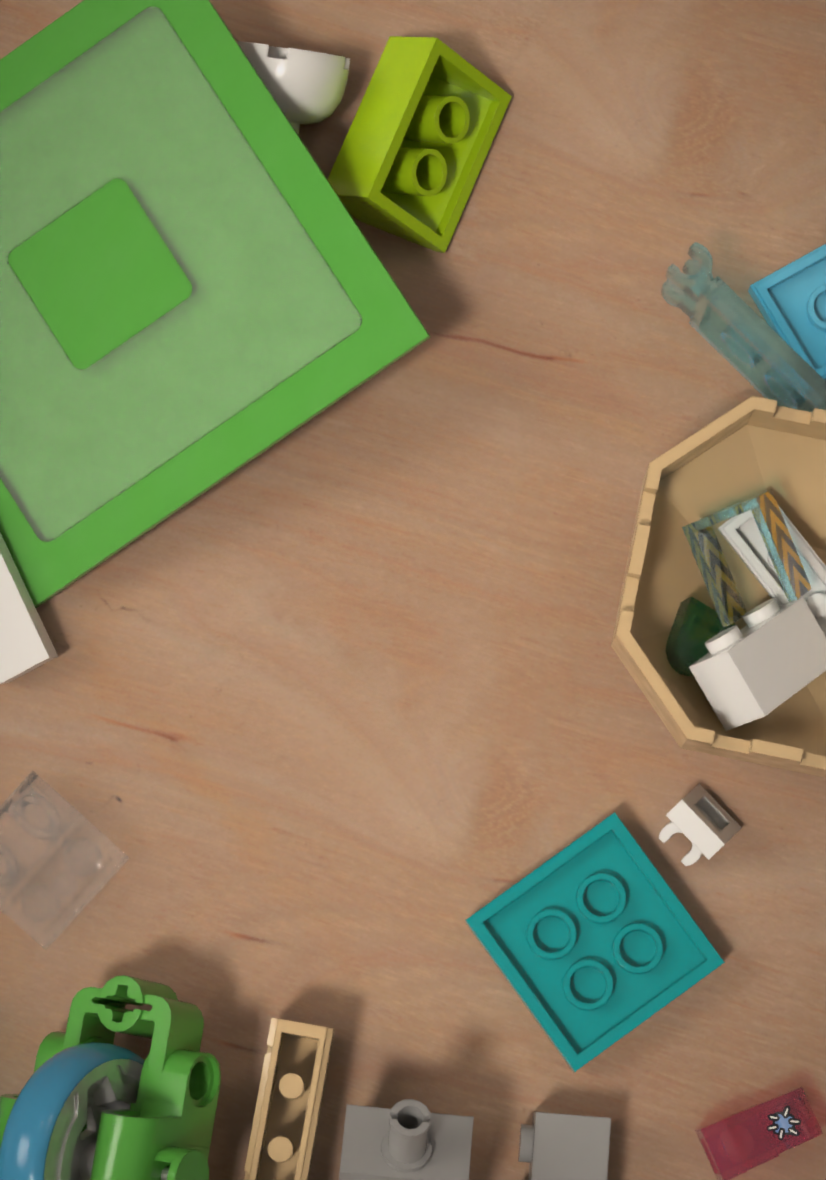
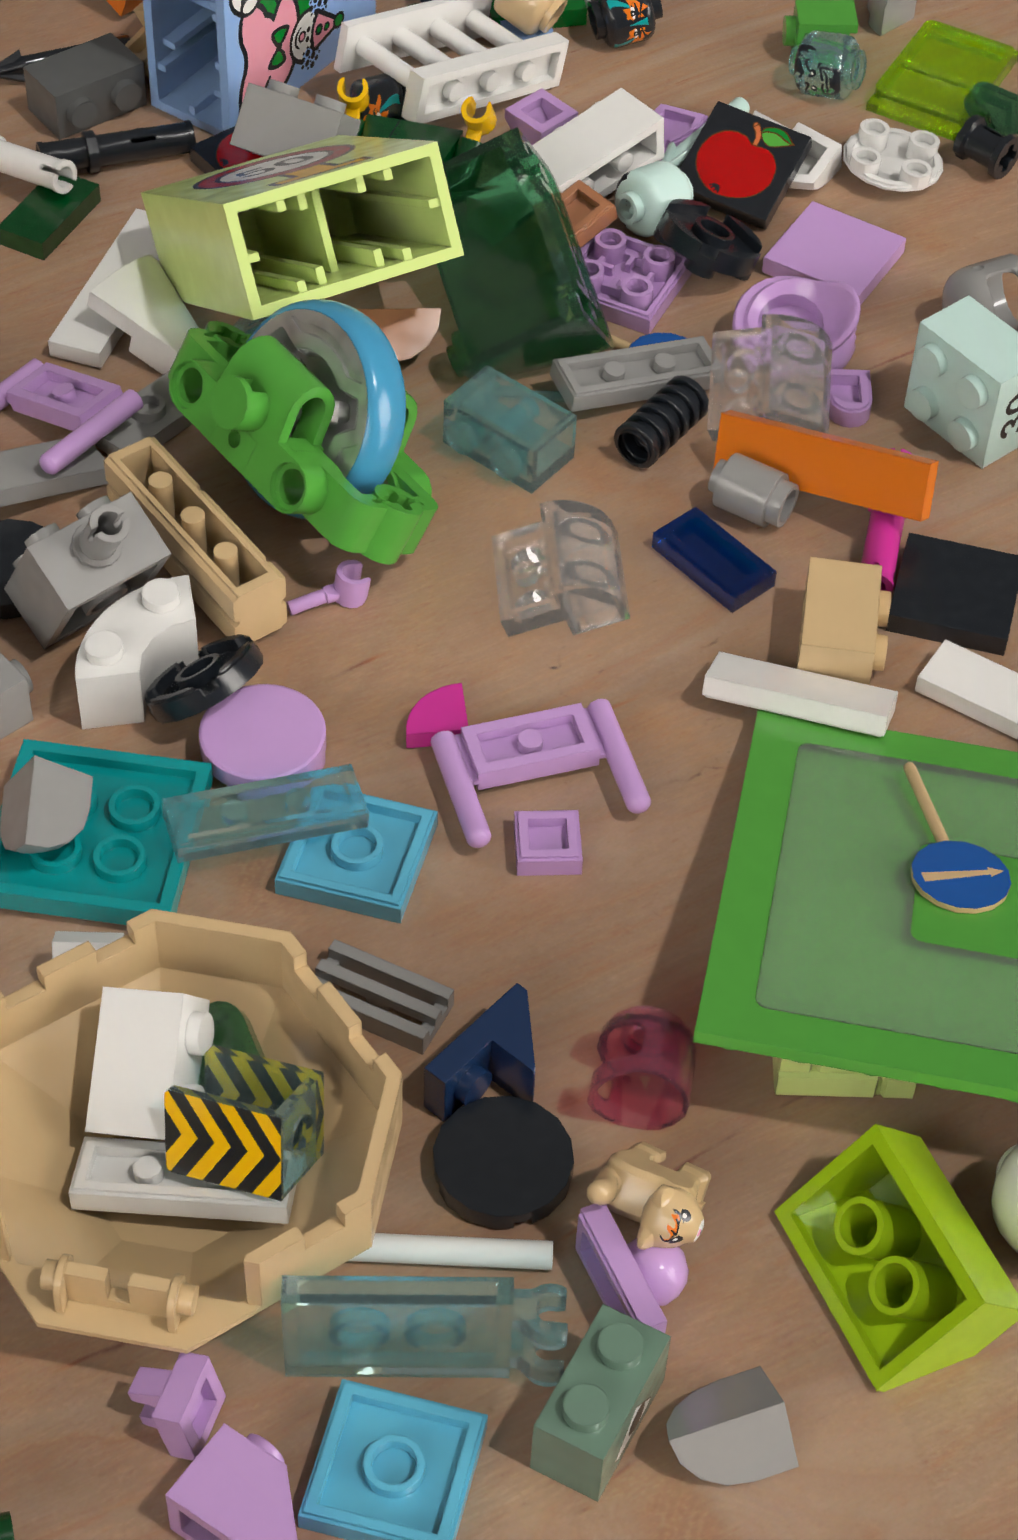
camera: 135 degrees right, 30 degrees down
(94, 317) = (954, 872): none -> blue piece
(214, 1022) = (346, 590): none -> lavender hand
(227, 726) = (530, 749): none -> lavender plate
(255, 822) = (436, 712): none -> dark pink tile
(292, 645) = (547, 842): none -> lavender tile
(402, 917) = (262, 735): none -> lavender tile
(408, 1021) = (205, 682): none -> black plate
(427, 762) = (362, 868): none -> medium azure tile
(433, 386) = (649, 1044): none -> clear pink helmet
(439, 1078) = (132, 648): none -> white brick
(474, 834) = (264, 813): none -> clear light blue tile
(499, 511) = (490, 1049): none -> dark blue slope
(514, 583) = (387, 988): none -> light grey tile
(526, 309) = (658, 1198): none -> tan animal
(573, 437) = (503, 1161): none -> black tile
(575, 276) = (627, 1276): none -> lavender tile
(624, 148) = (733, 1430): none -> light grey brick
(635, 967) = (44, 806): none -> light grey brick
(647, 393) = (459, 1251): none -> white bar
(668, 222) = (599, 1402): none -> sand green brick

